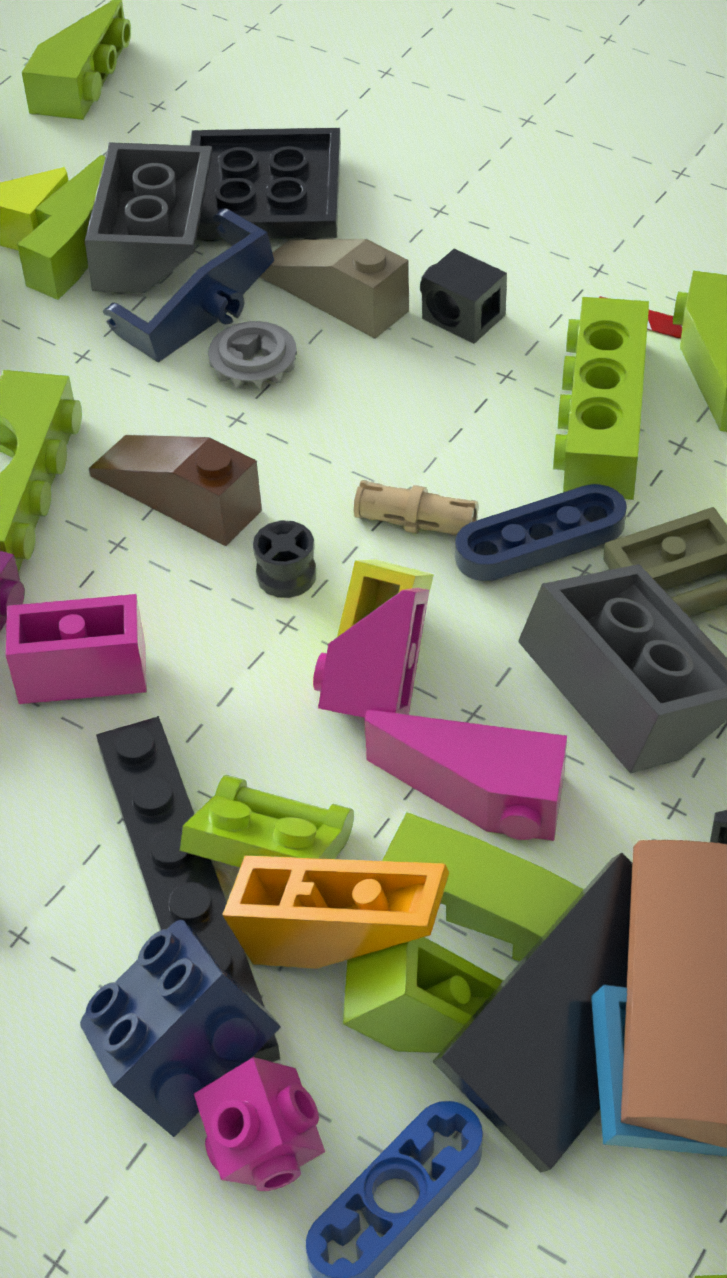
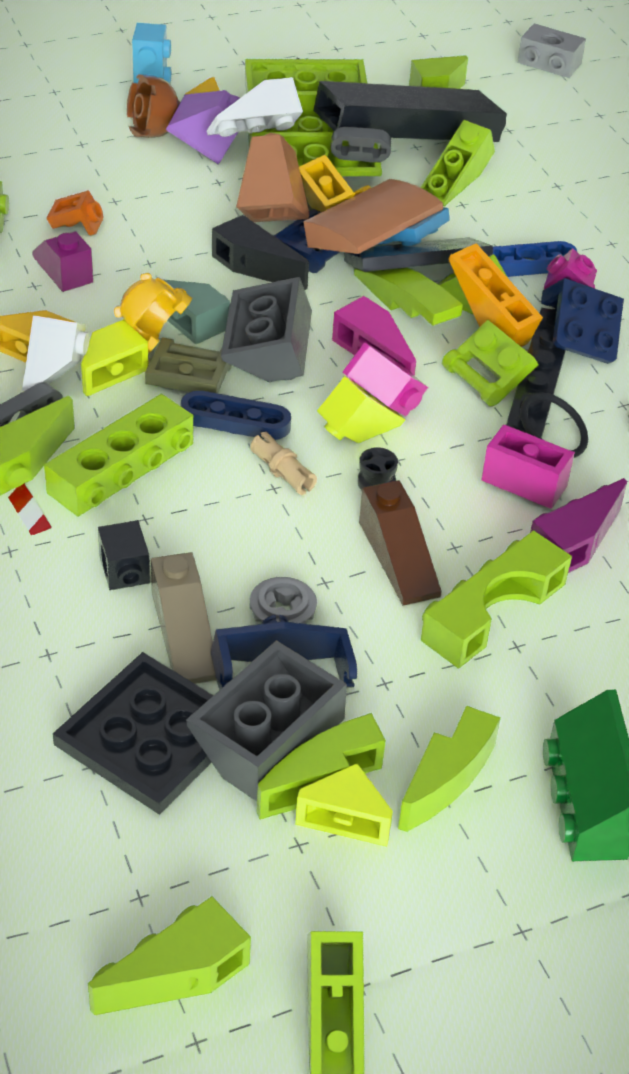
camera: 150 degrees left, 5 degrees down
(129, 799) = (565, 406): none -> black tyre

